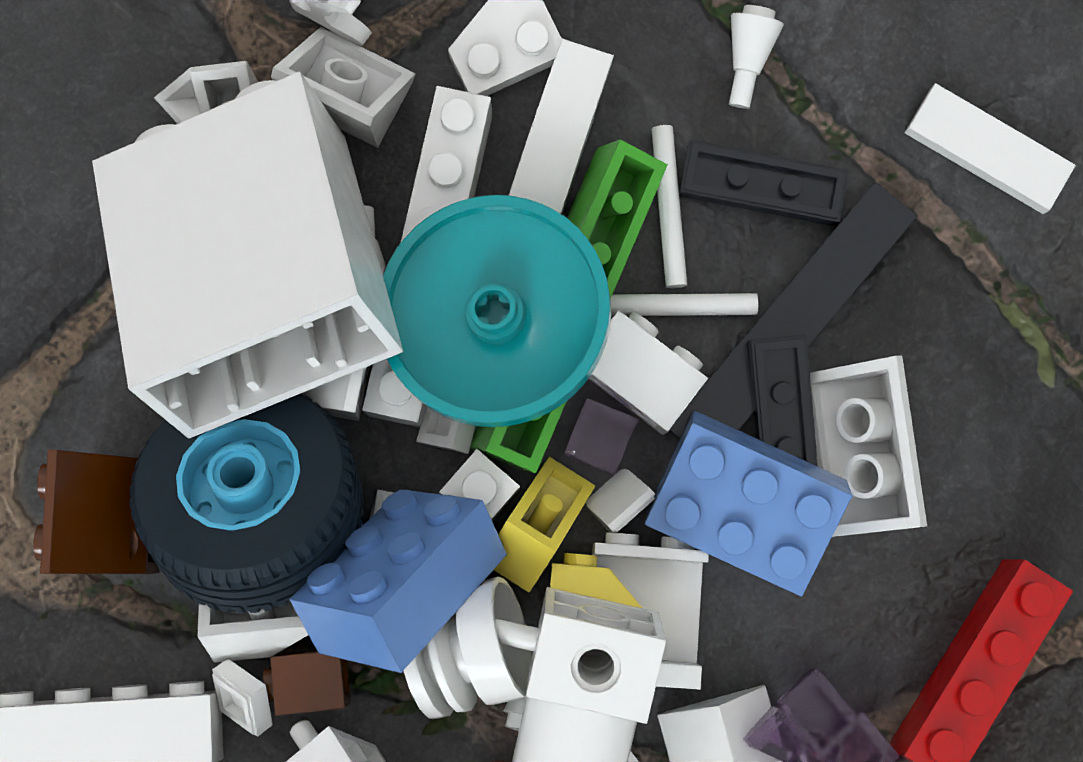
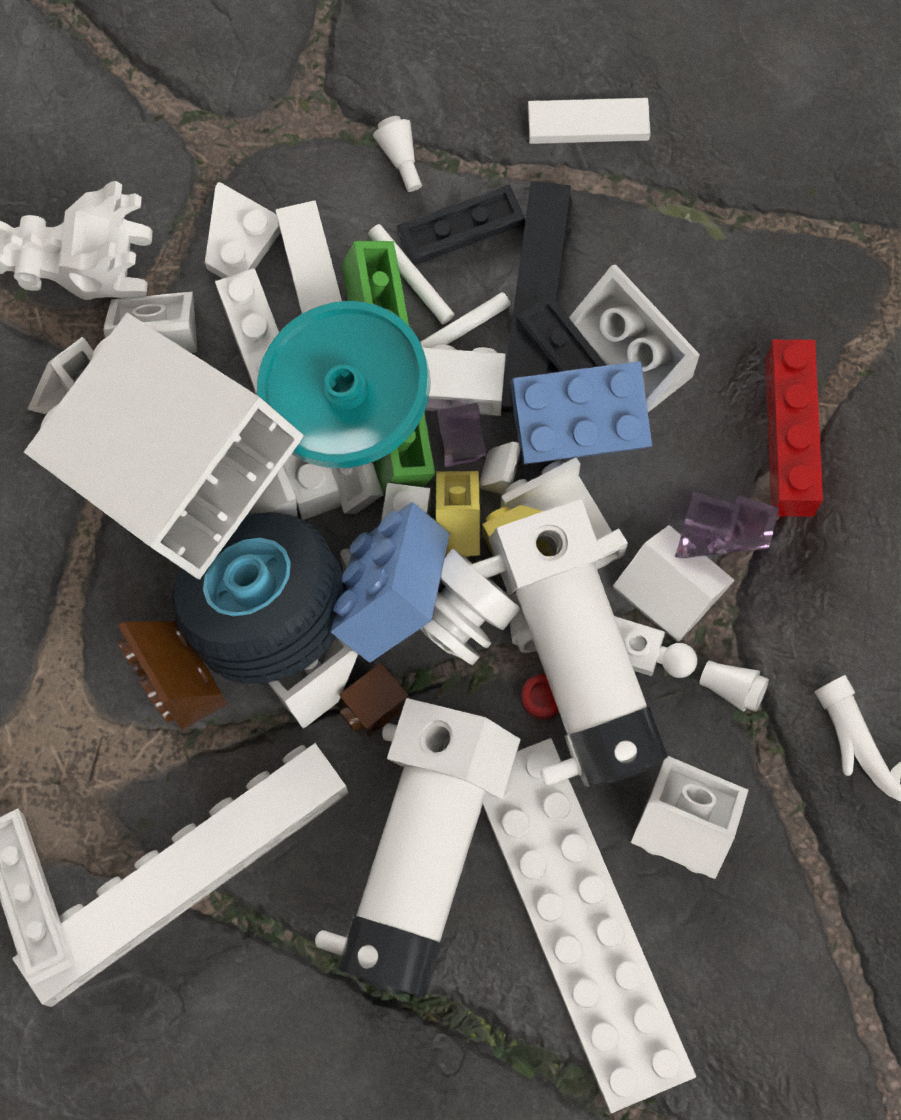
camera: 25 degrees left, 10 degrees down
(242, 697) = (337, 735): white tile -> none

